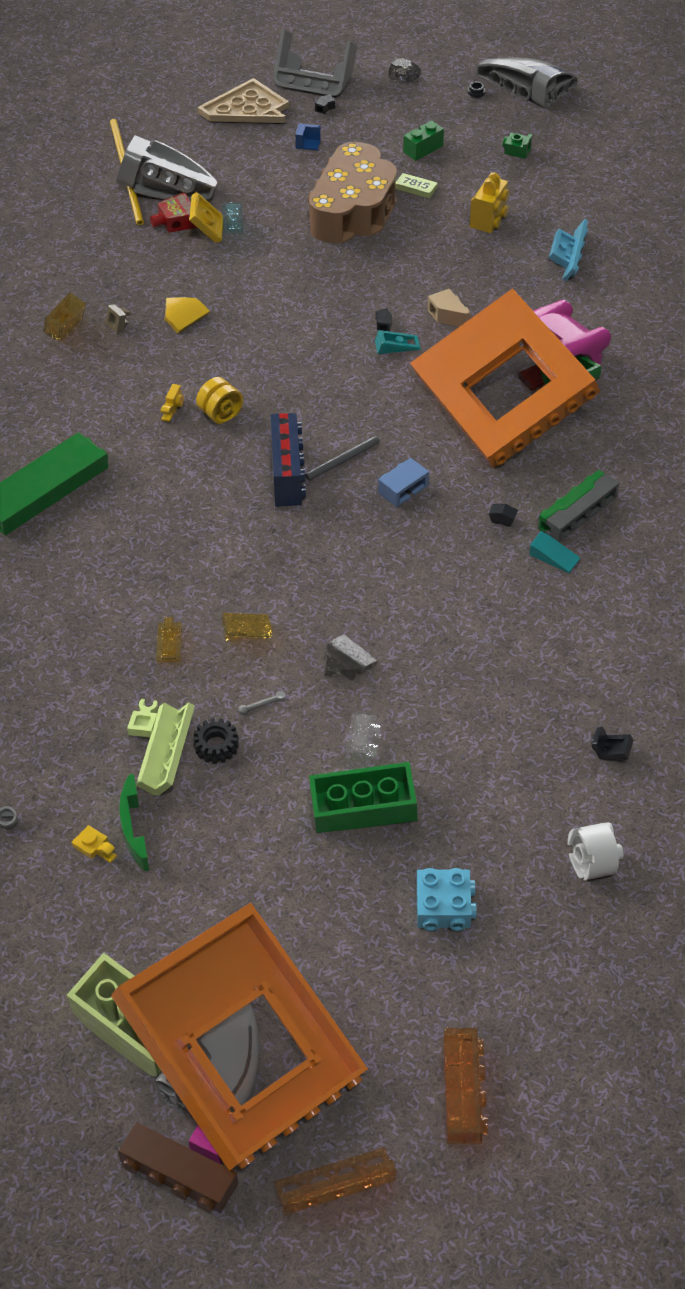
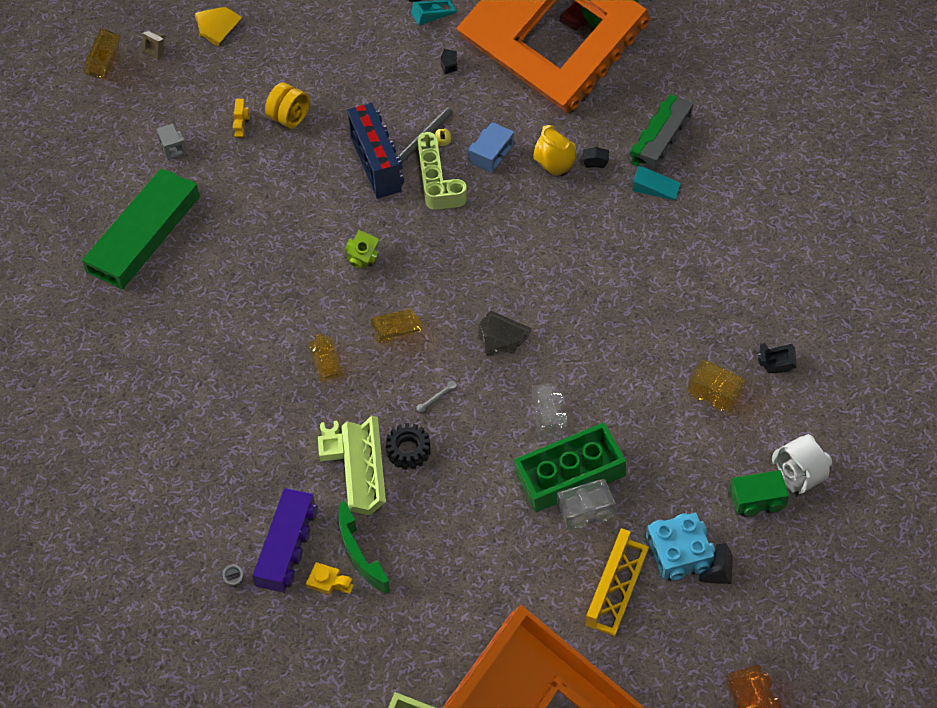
camera: 15 degrees left, 5 degrees up
(66, 797) = (284, 540): none -> dark purple brick
(99, 410) = (171, 141): none -> light grey brick
(240, 549) = (362, 250): none -> lime brick
(334, 511) = (438, 192): none -> yellowish green beam
(359, 913) = (609, 575): none -> yellow fence
(364, 463) = (442, 142): none -> light yellow hinge
(365, 836) = (586, 504): none -> clear brick
(393, 392) = (448, 61): none -> black piece
(462, 499) = (554, 151): none -> yellow helmet
(479, 928) = (723, 567): none -> black tile
(539, 757) = (716, 385): none -> clear yellow brick
(543, 868) = (759, 493): none -> green brick

